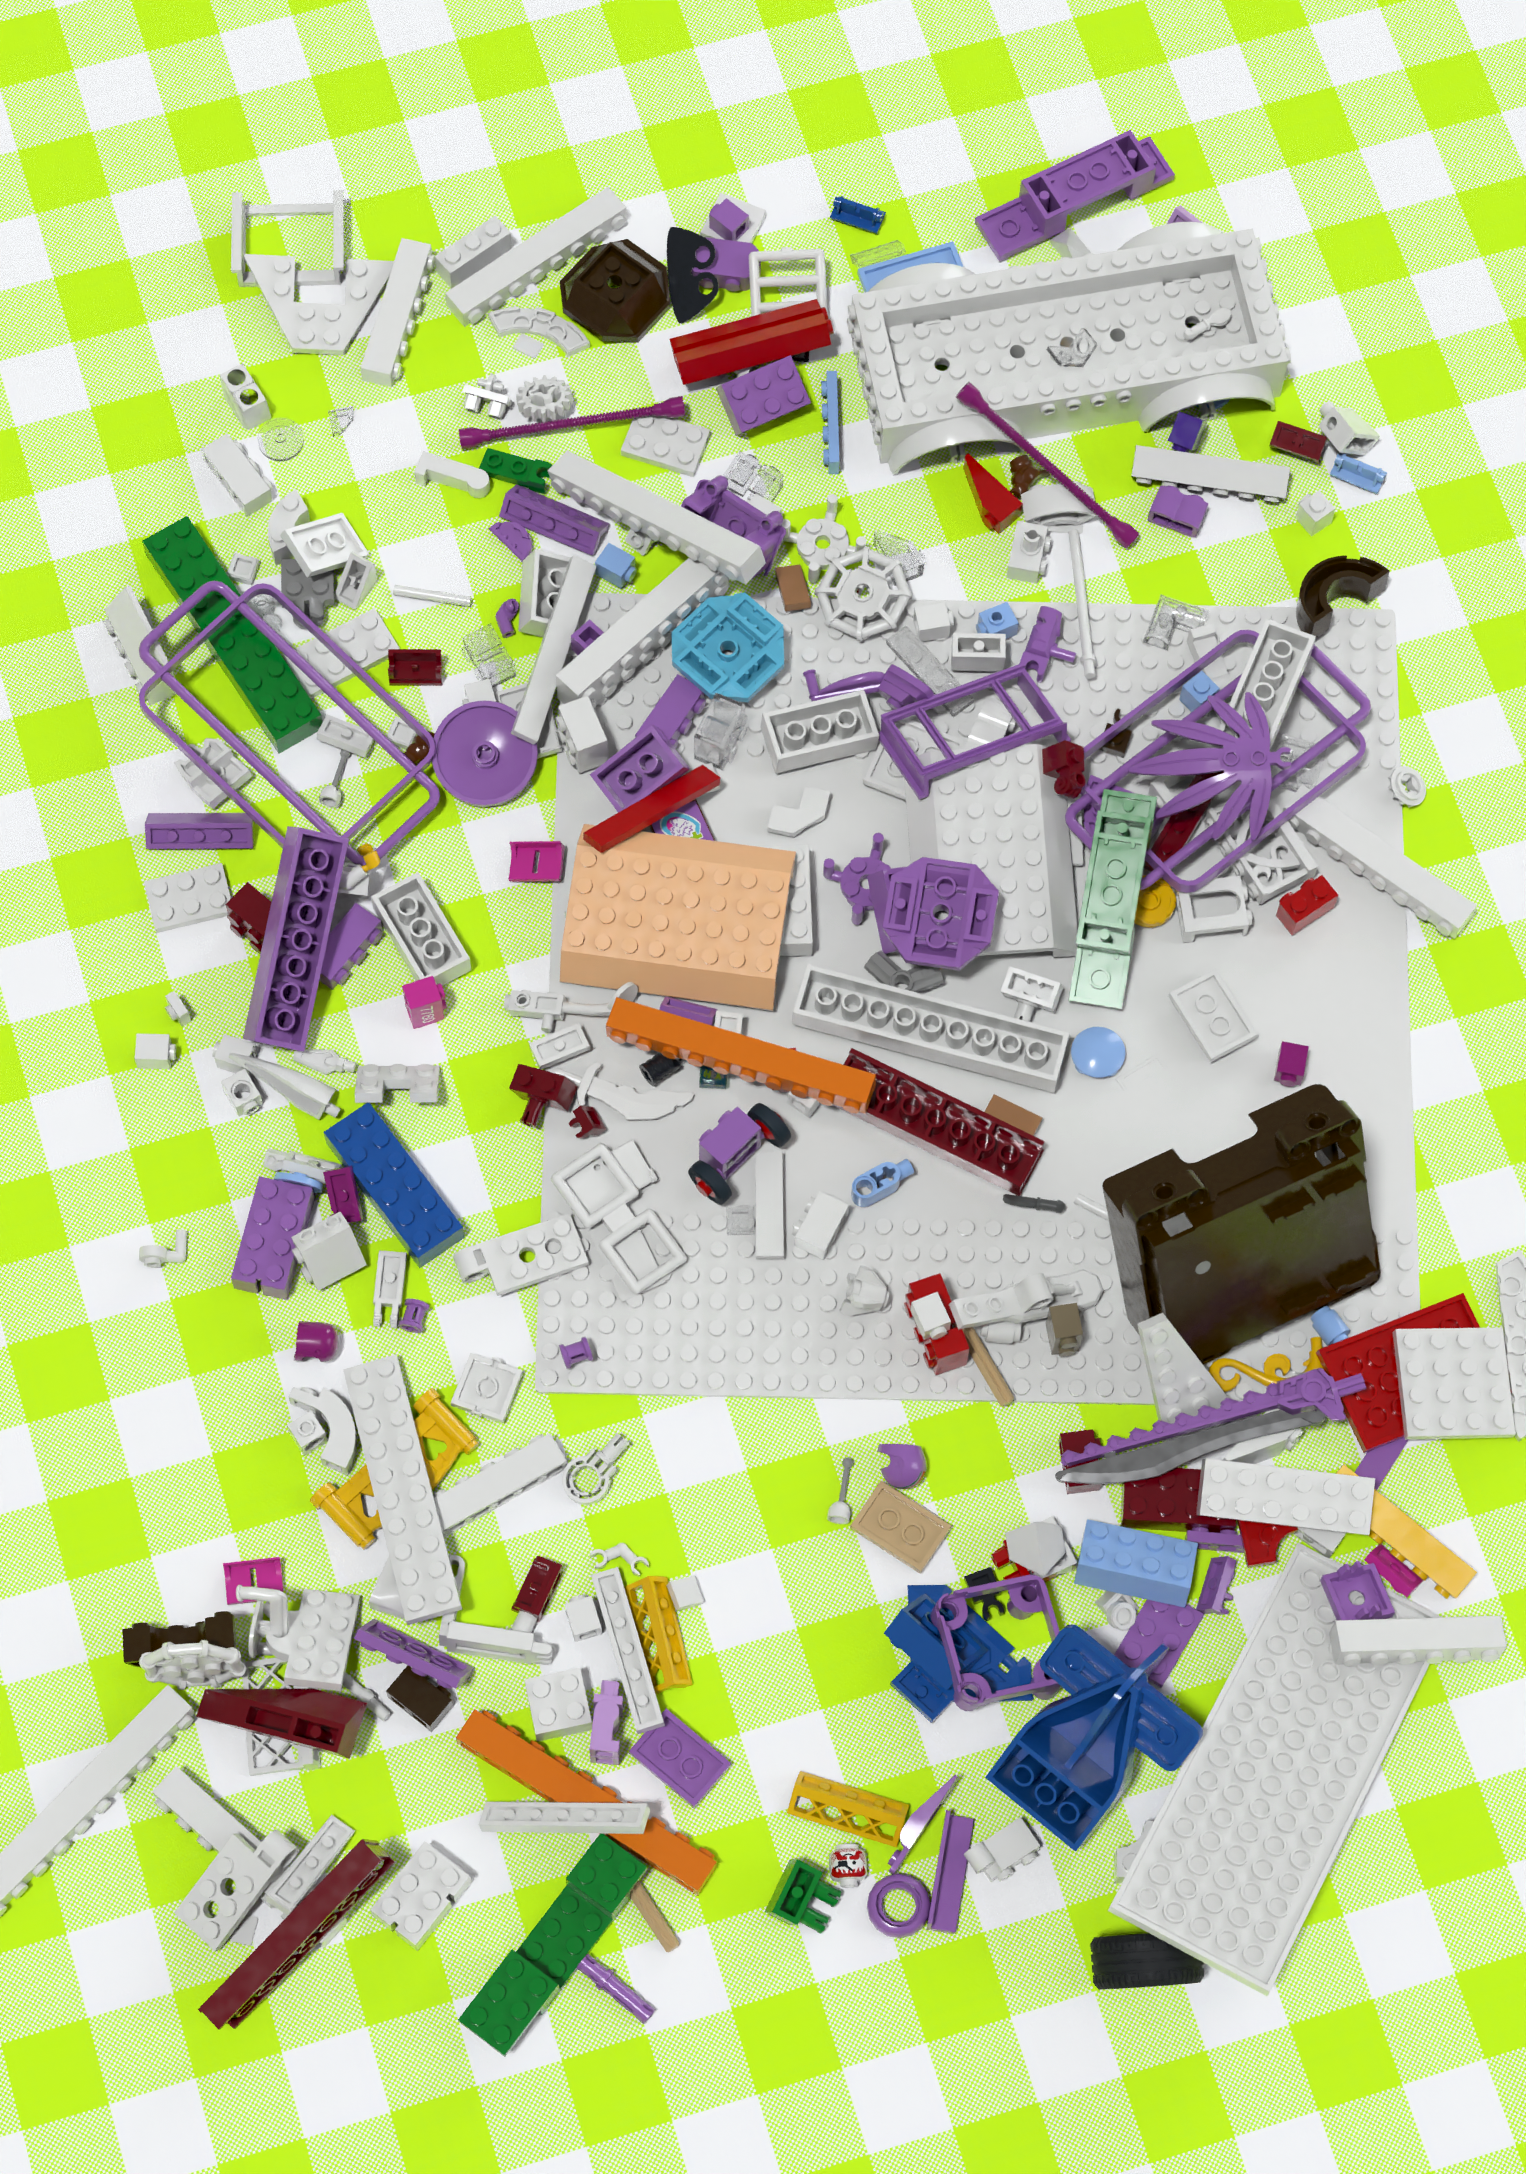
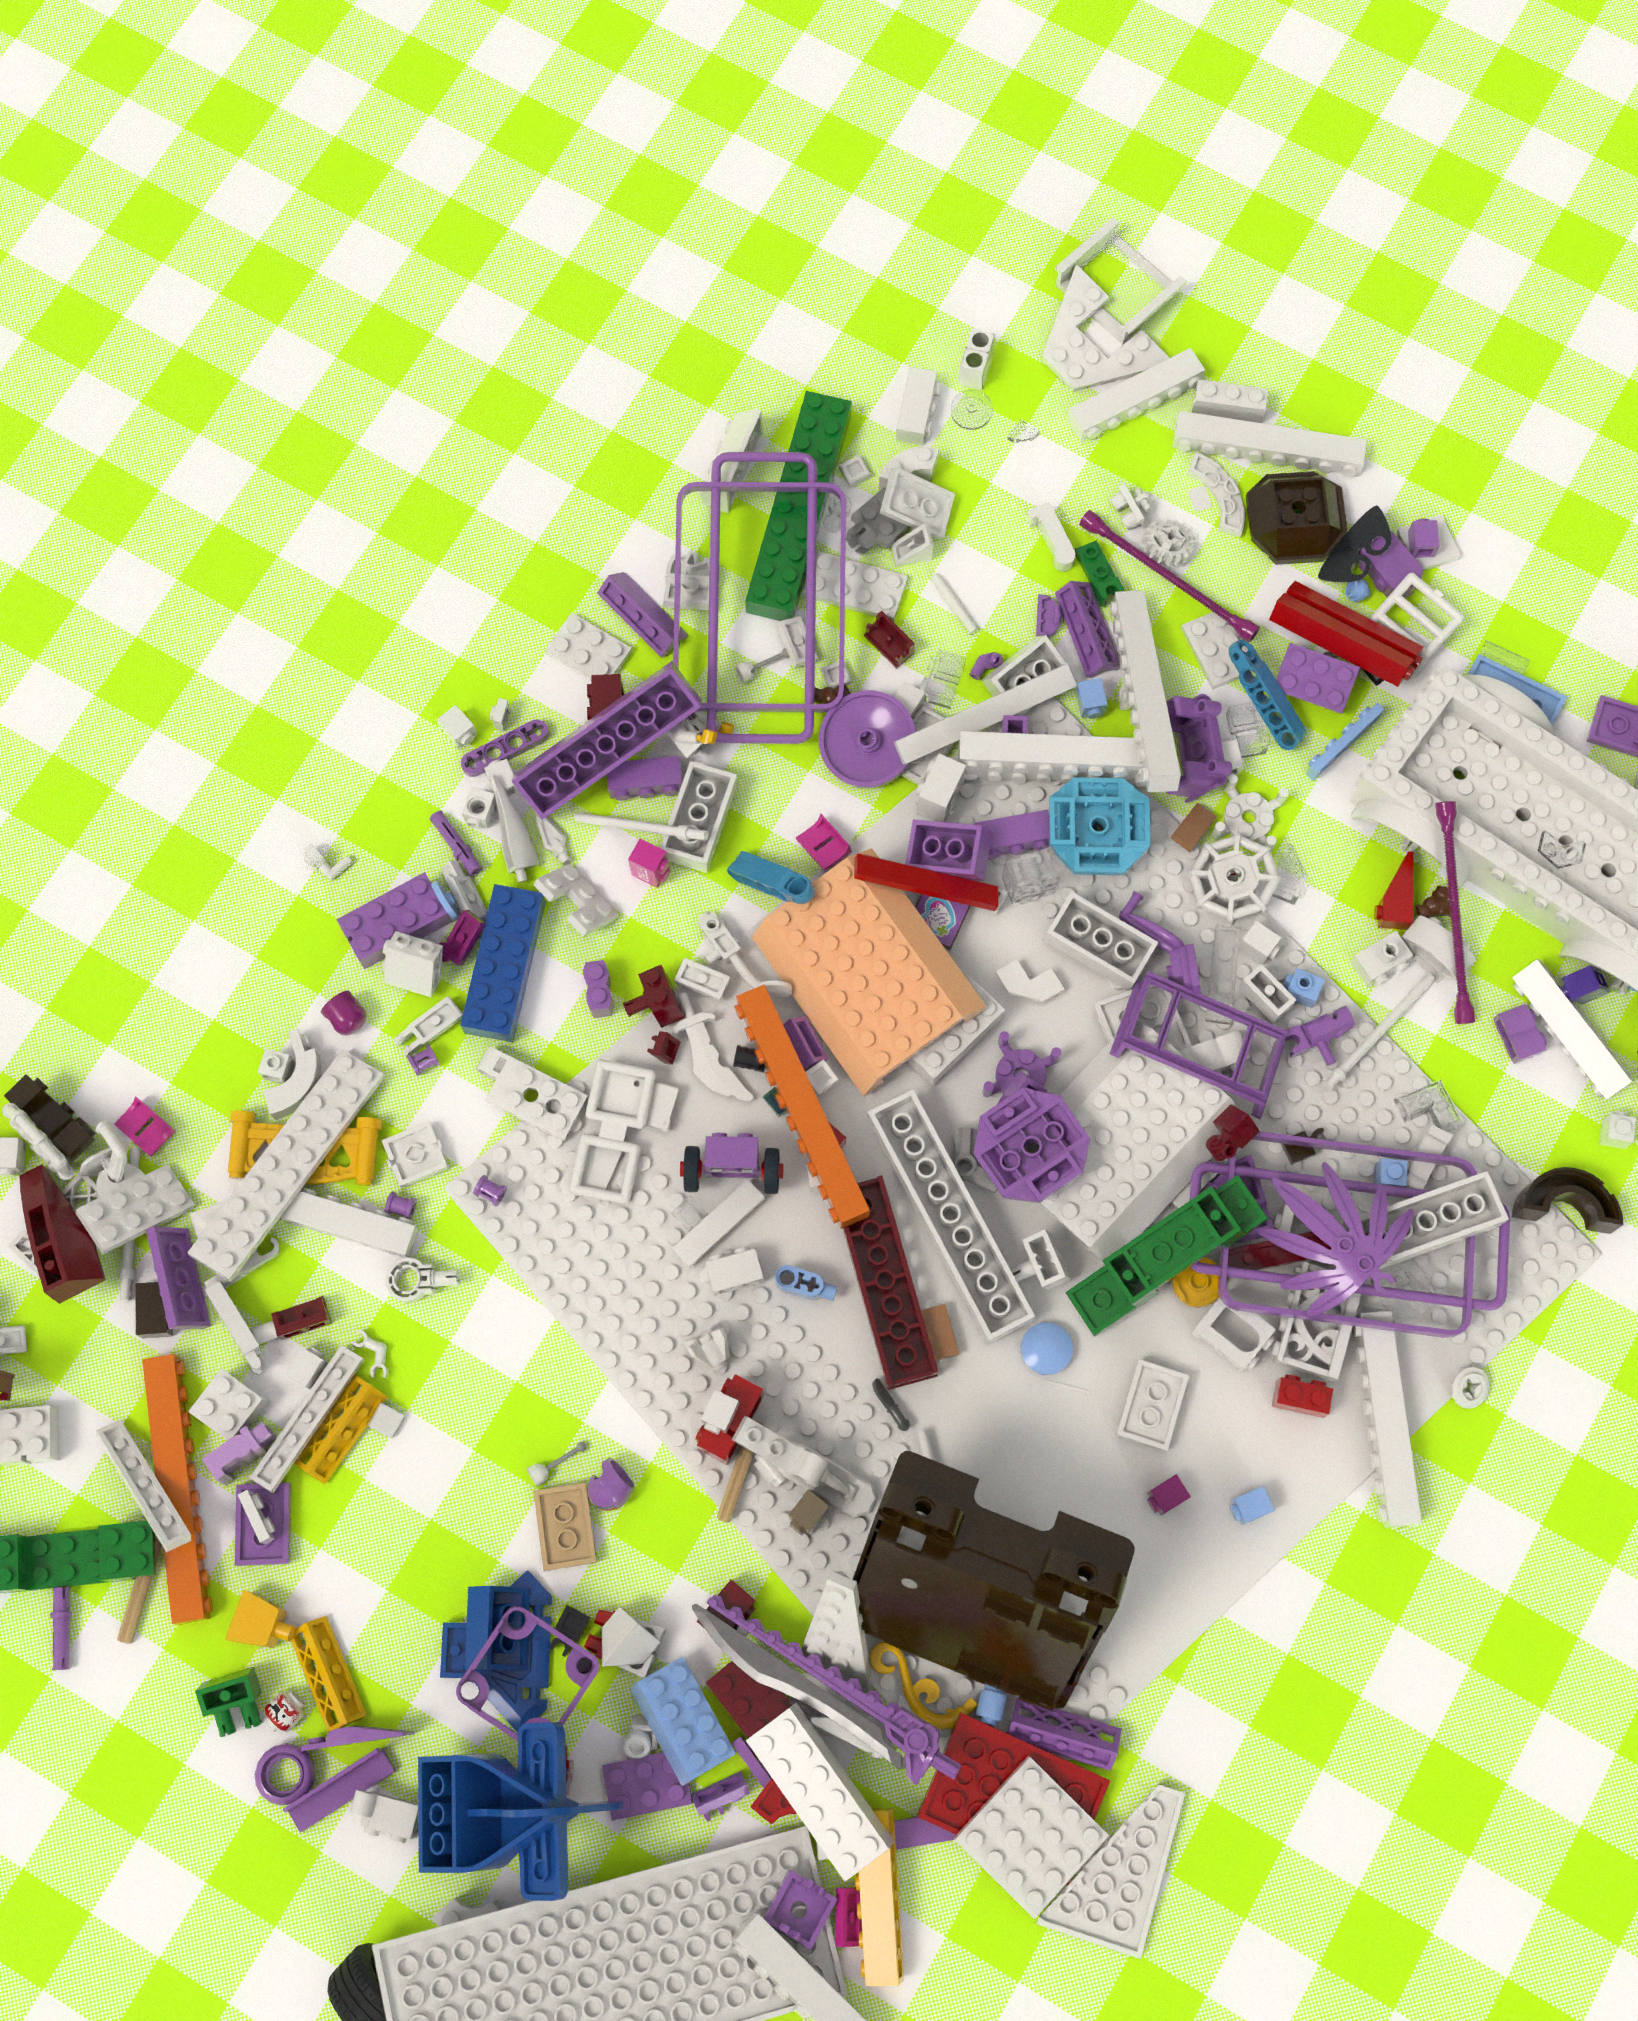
camera: 50 degrees right, 5 degrees up
(203, 1030) = (502, 744): none -> medium lavender beam
(256, 1137) = (461, 851): none -> medium lavender pin
(429, 950) = (682, 832): none -> white bar
(494, 1134) = (598, 989): none -> medium lavender brick
(518, 1434) = (400, 1205): none -> medium lavender bush
(532, 919) = (771, 878): none -> dark azure piece
(684, 1753) = (262, 1526): none -> white plate
(720, 305) = (1357, 590): none -> light blue plate
(727, 441) = (1267, 706): none -> dark azure piece
(759, 1824) = (259, 1622): none -> yellow torso
(857, 214) = (1520, 616): blue hinge -> none
(1353, 1012) = (1251, 1506): none -> light blue brick
(1402, 1297) = (1063, 1738): none -> medium lavender fence

